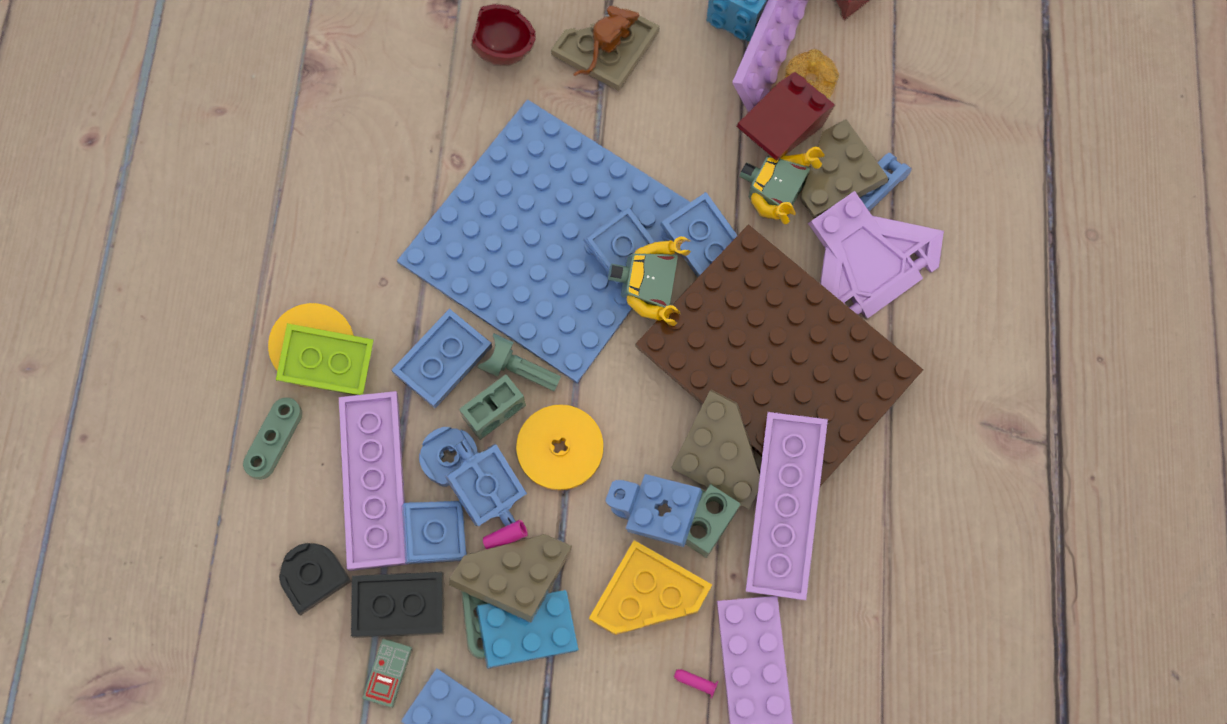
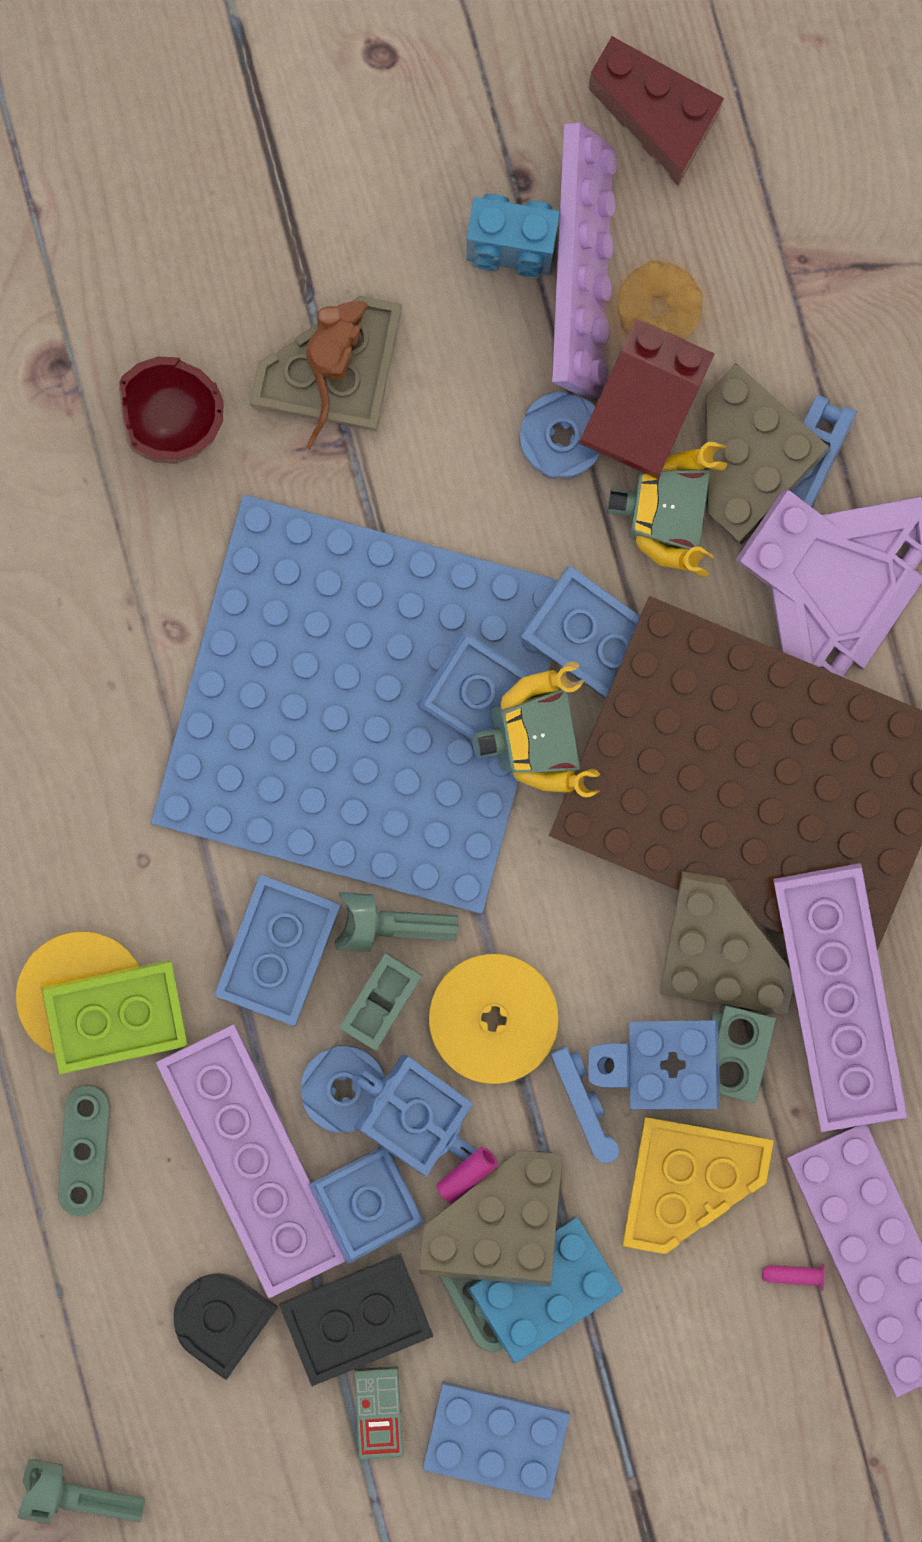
camera: 20 degrees left, 15 degrees up
(153, 643) = (48, 1492): none -> sand green piece
(598, 520) = (585, 1105): none -> medium blue plate
(712, 124) = (538, 427): none -> medium blue plate

